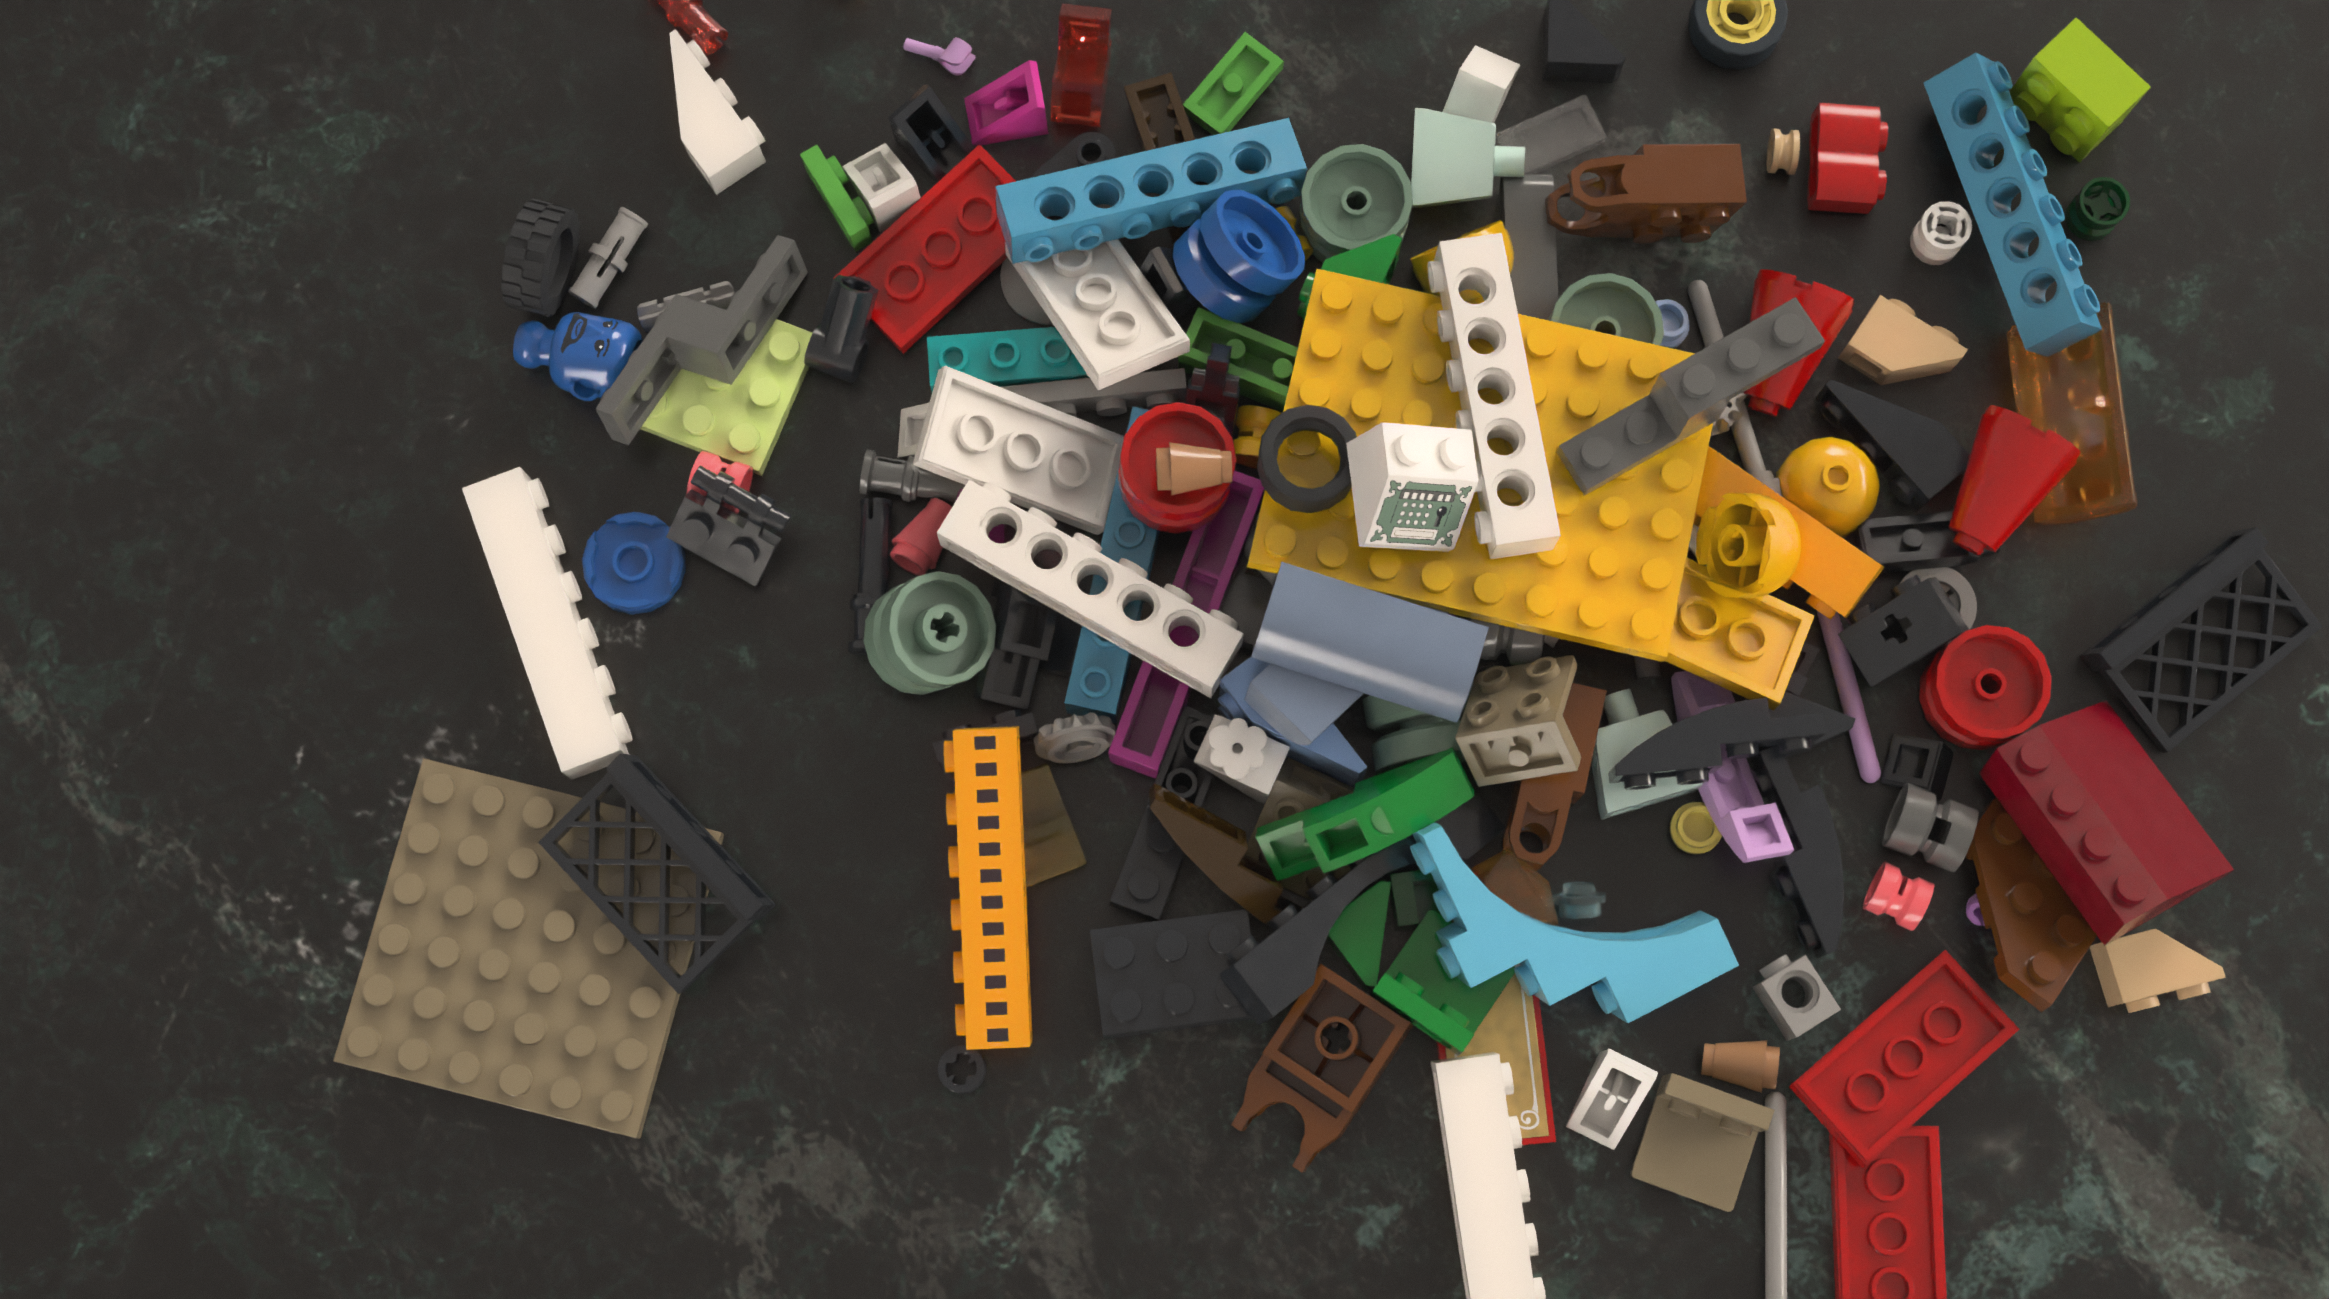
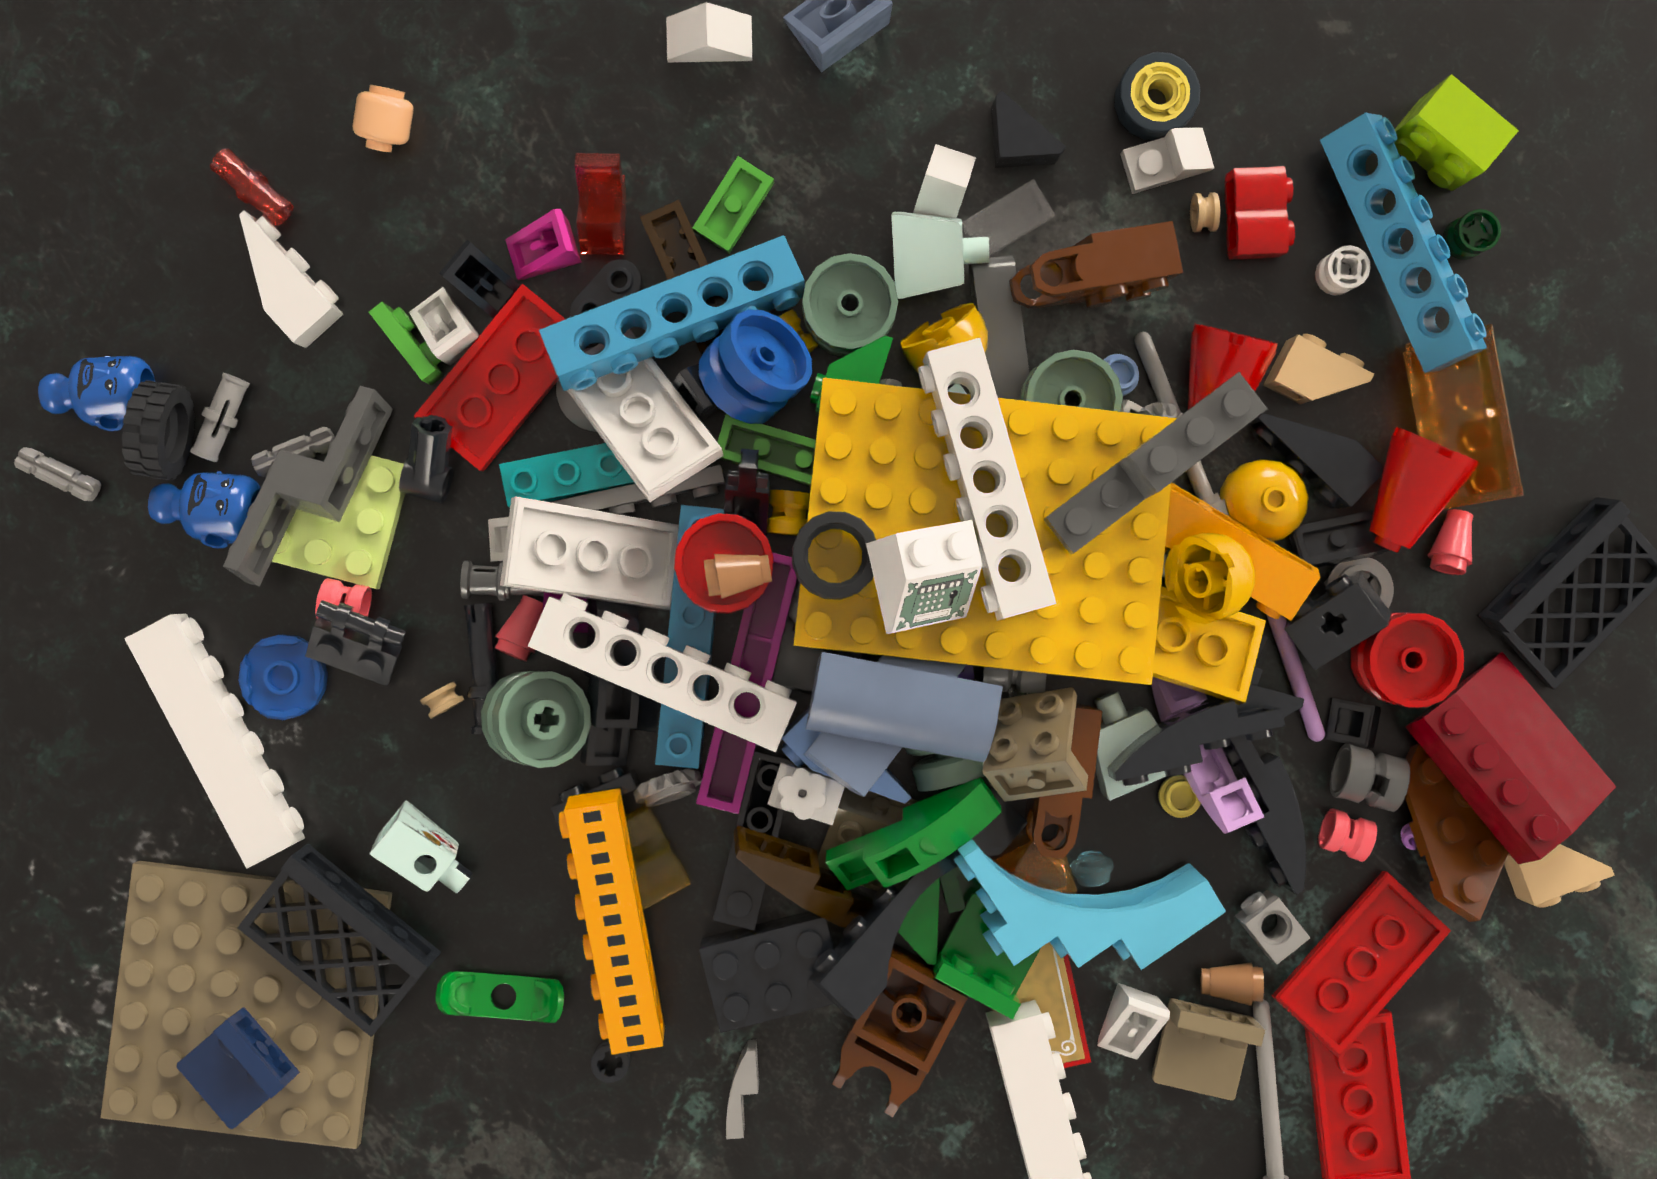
camera: 10 degrees left, 10 degrees up
(410, 301) = (57, 474): none -> light grey axle
(475, 209) = (95, 389): none -> blue piece
(511, 1011) = (237, 1068): none -> dark blue bracket
(753, 761) = (409, 838): none -> light aqua torso
(803, 967) = (471, 995): none -> green piece
(819, 608) = (442, 700): none -> tan bush
(954, 58) = (493, 203): lavender hand -> none
(1124, 1106) = (744, 1082): none -> light grey slope
(1745, 90) = (1167, 159): none -> white slope
(2052, 566) = (1453, 544): none -> coral cone

